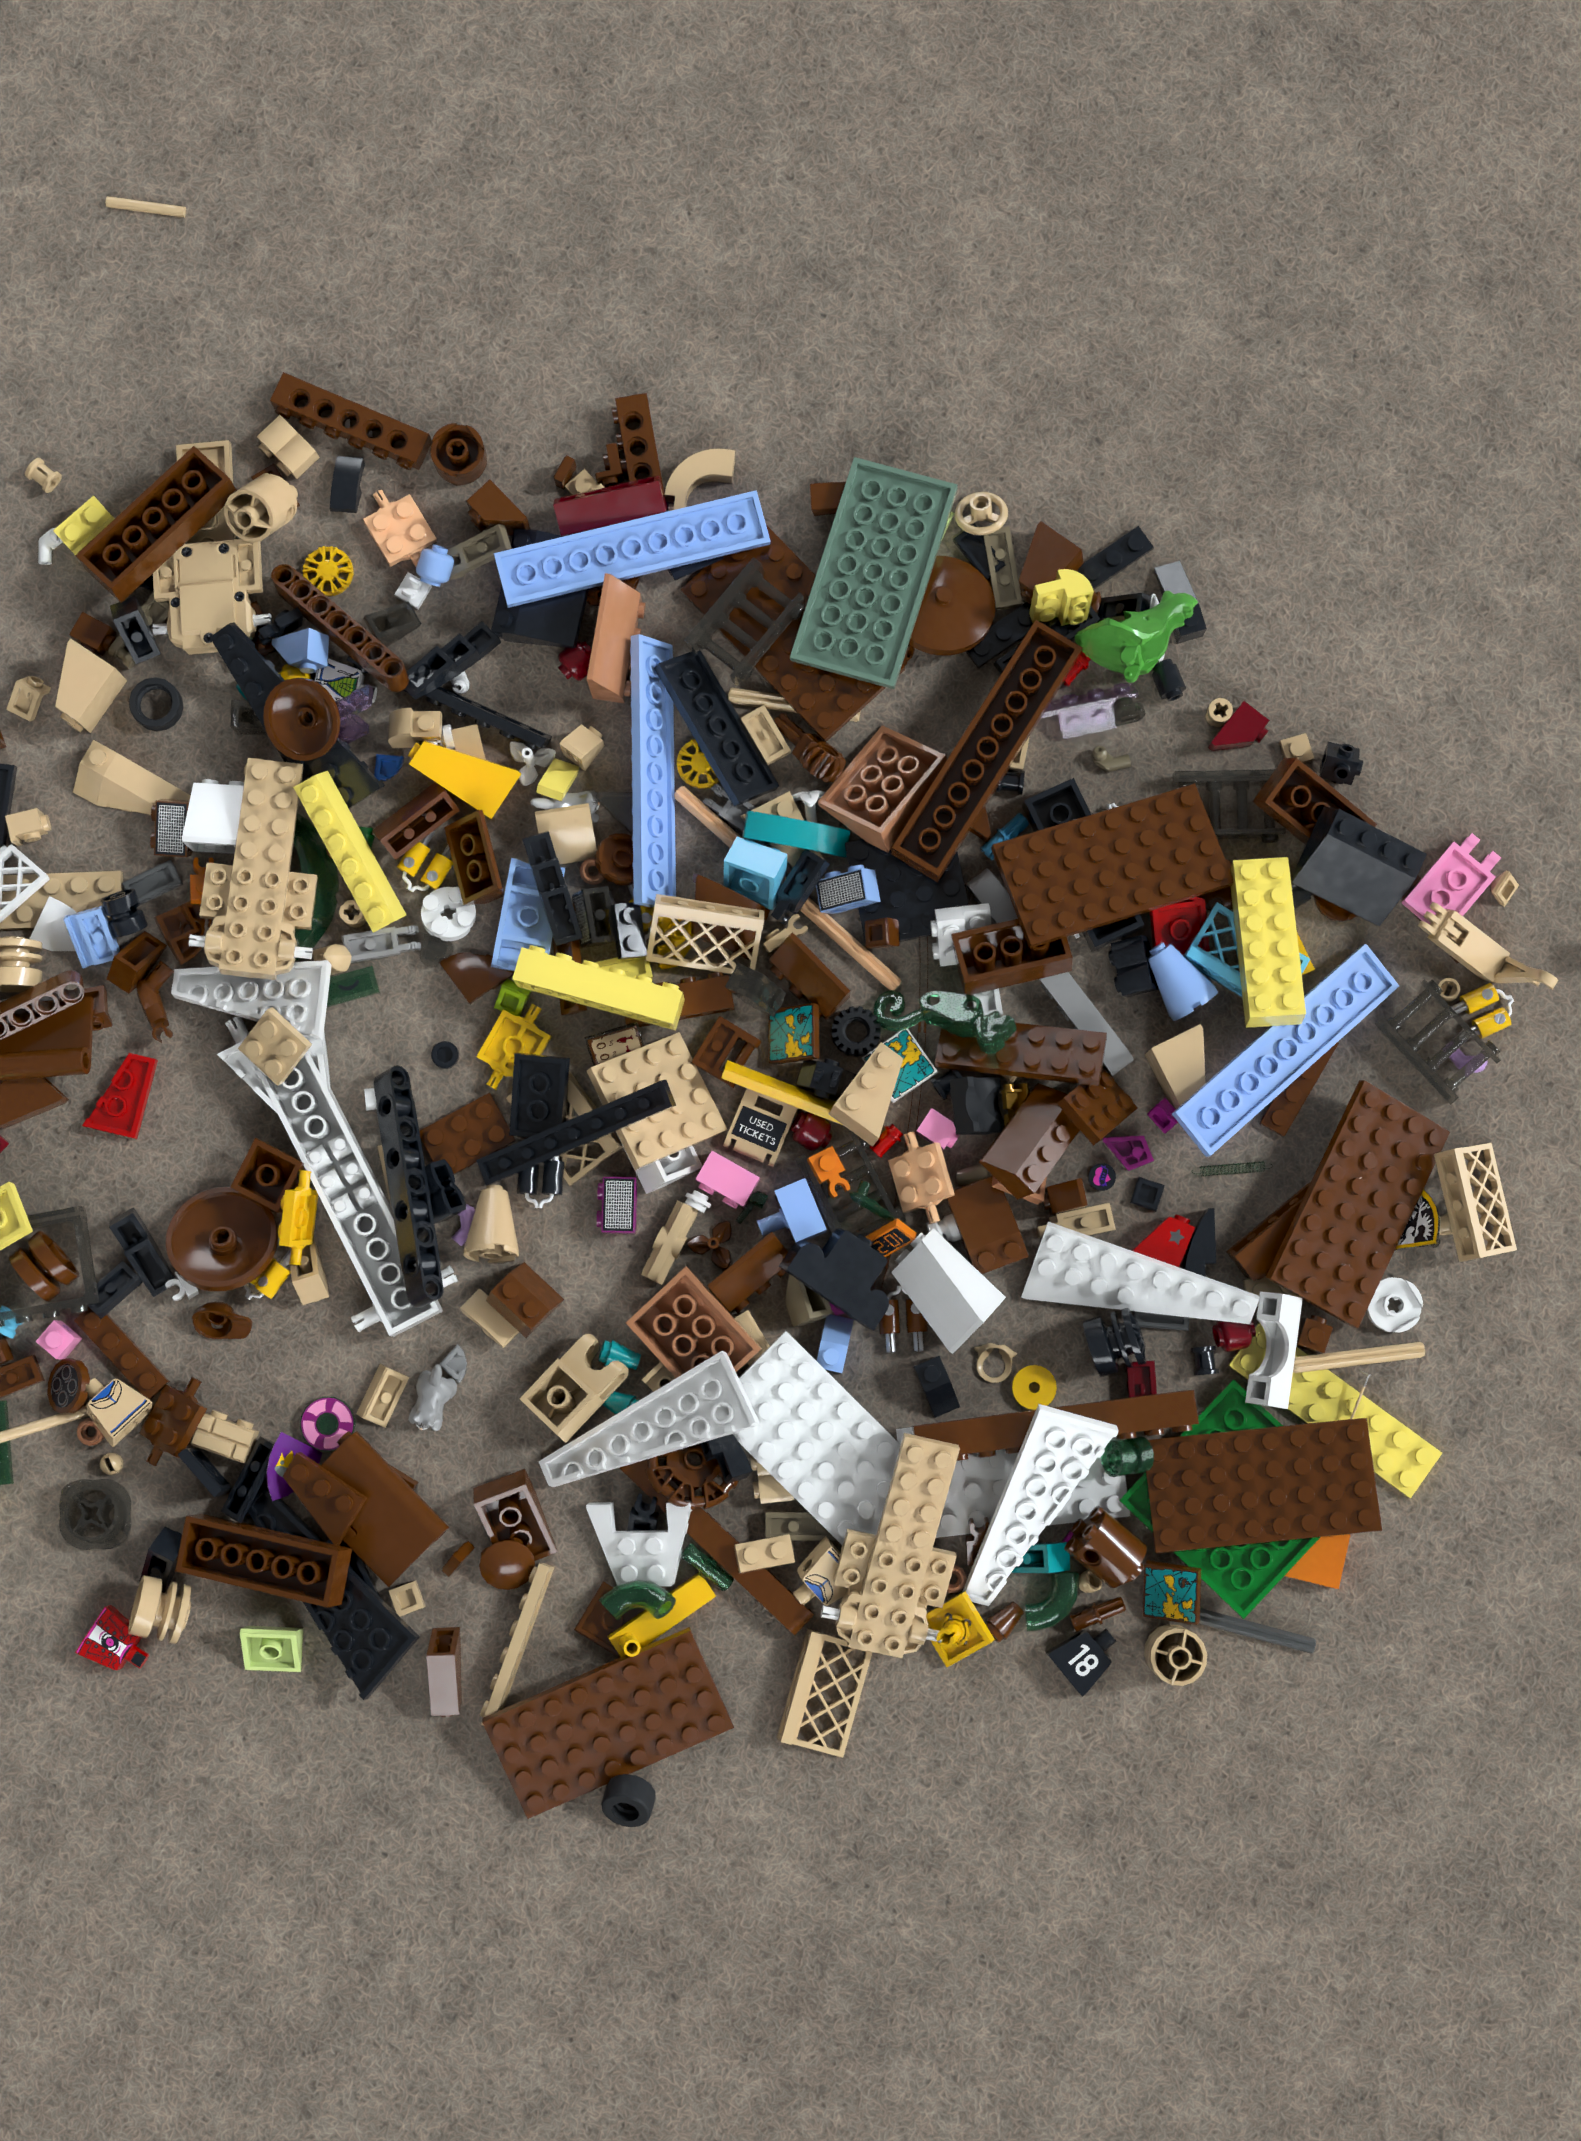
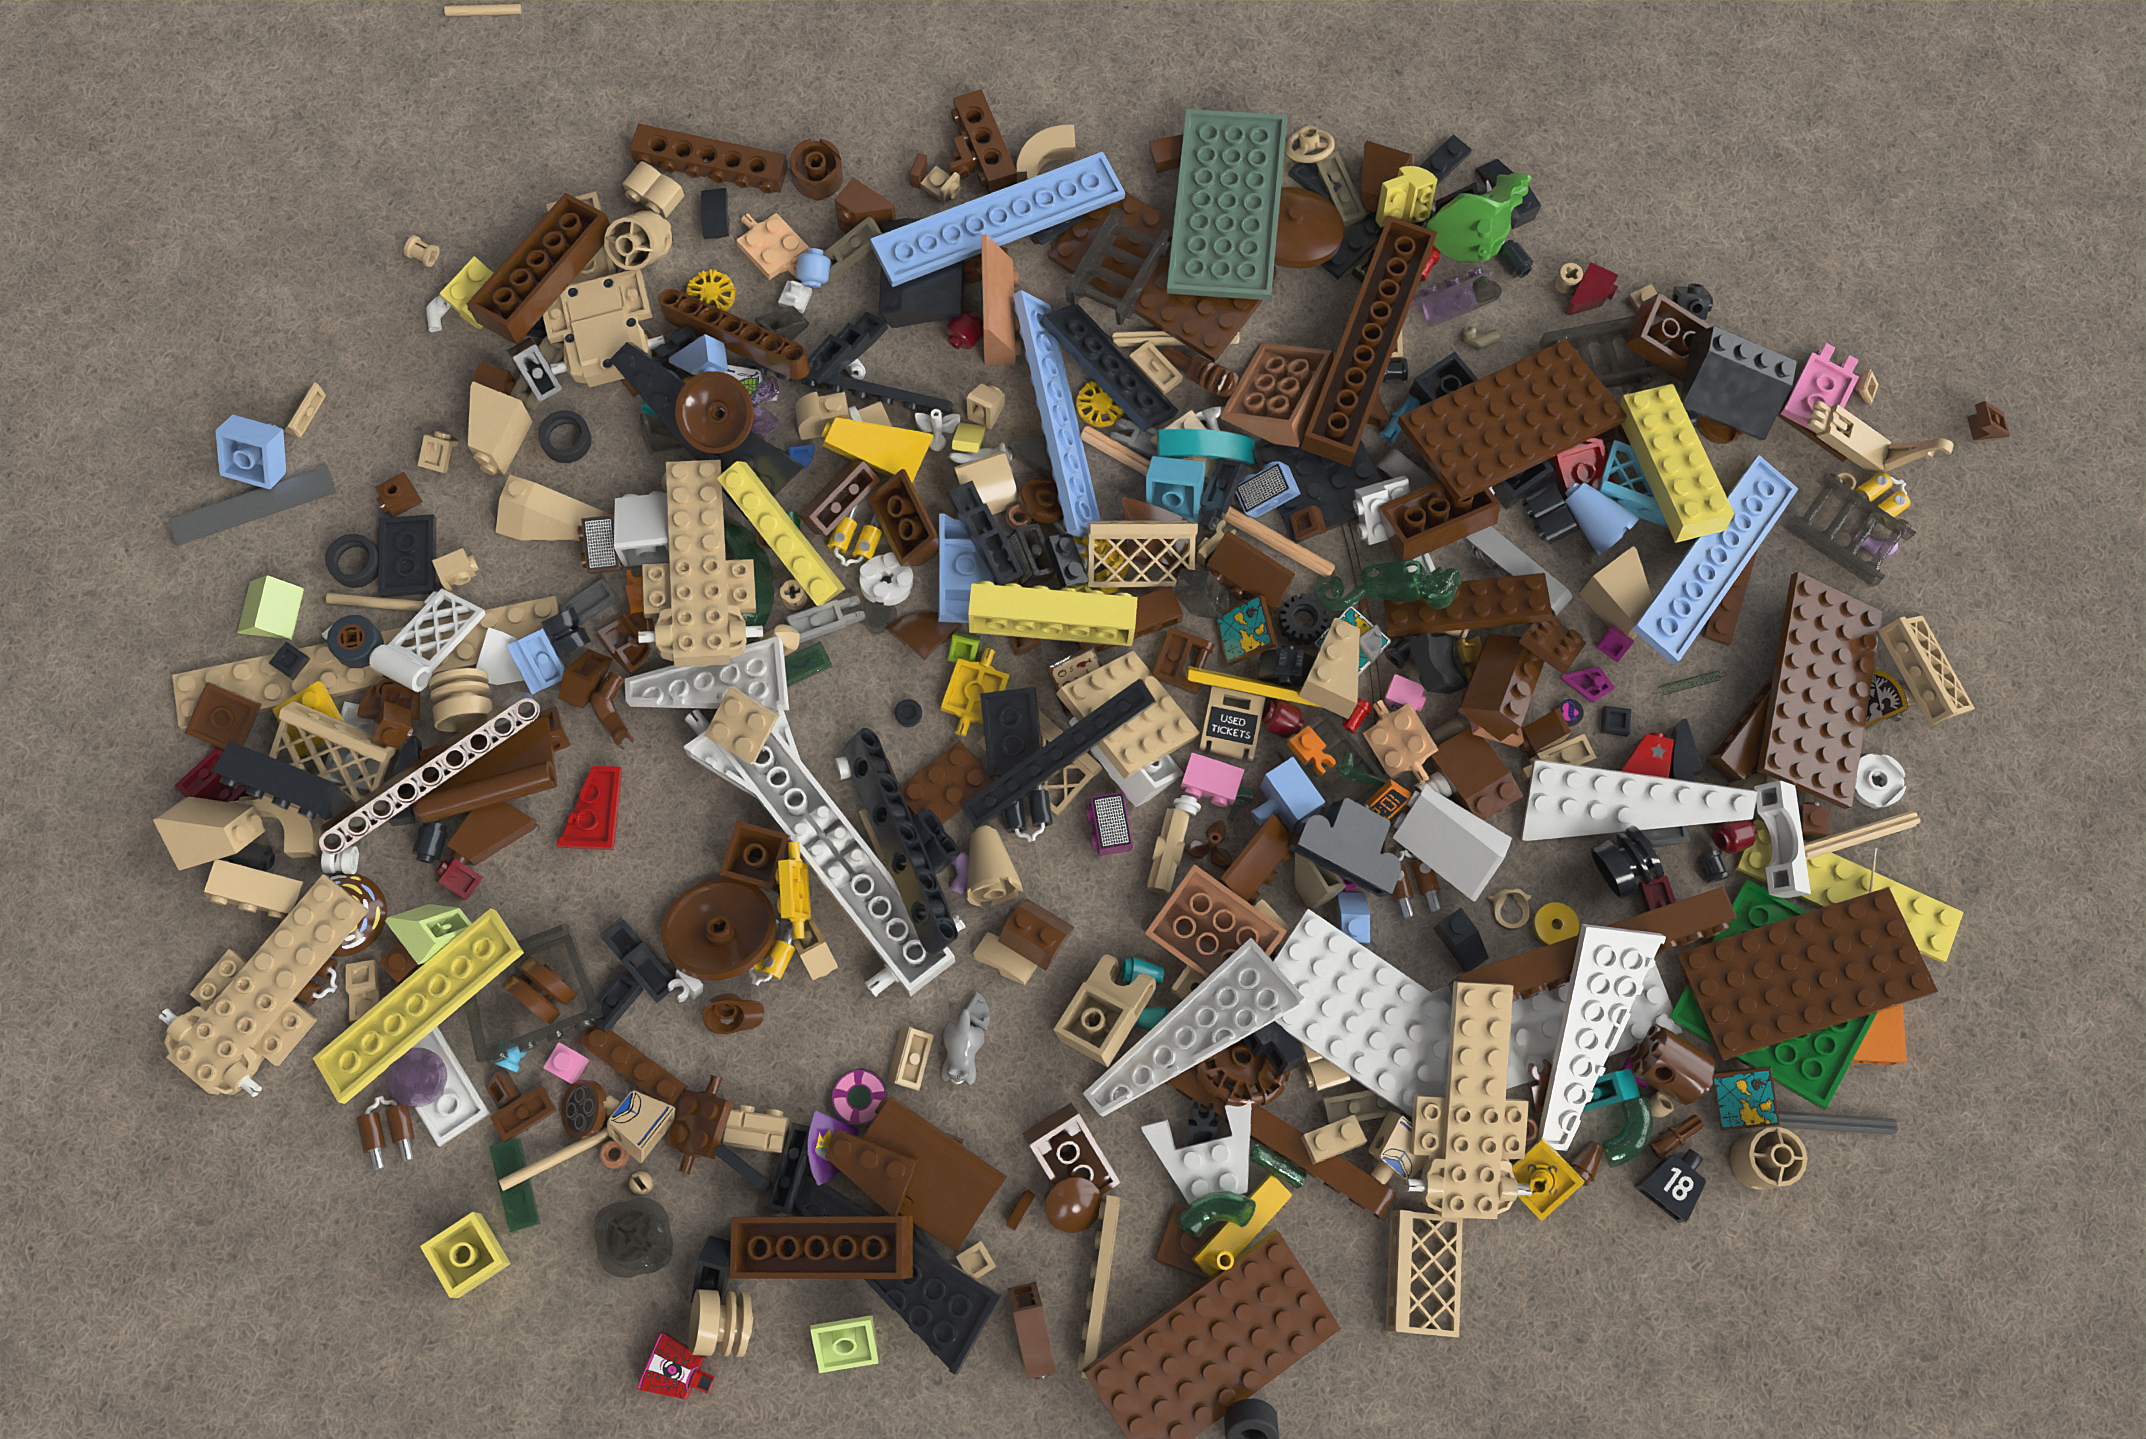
camera: 20 degrees left, 10 degrees down
(609, 505) = (970, 185): dark red brick -> none
(916, 1071) = (1371, 643): none -> light grey tile
(1127, 1456) = (1670, 971): clear green wheel -> none

